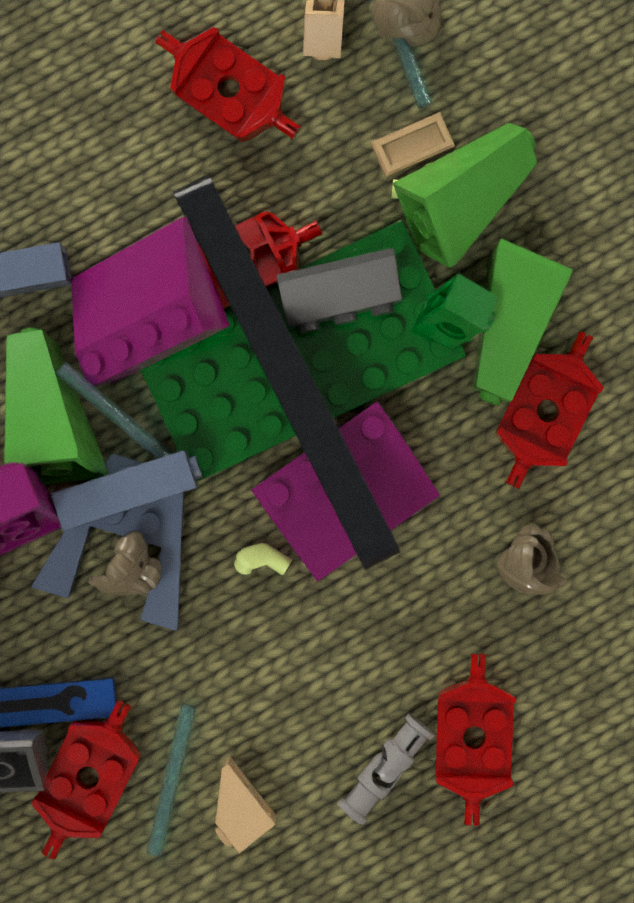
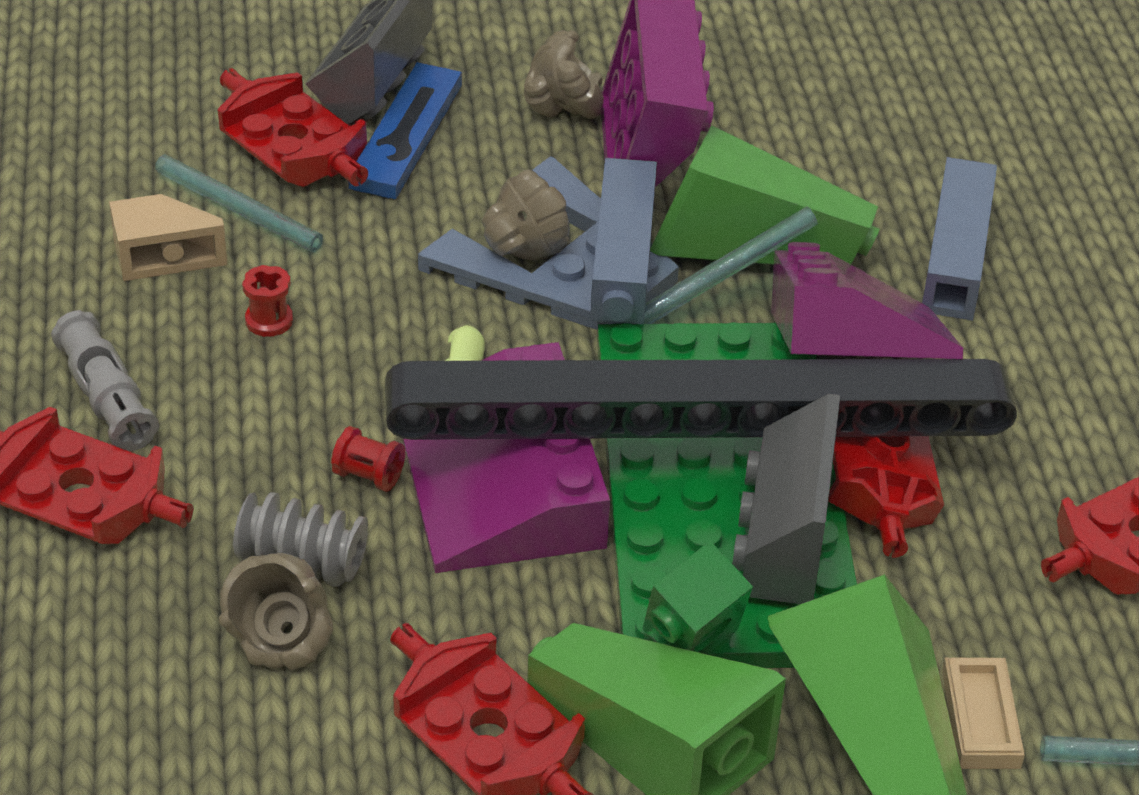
camera: 110 degrees right, 45 degrees down
(274, 715) = (267, 301): none -> red bush
(381, 577) = (368, 458): none -> red bush
(469, 576) = (326, 547): none -> light grey piece

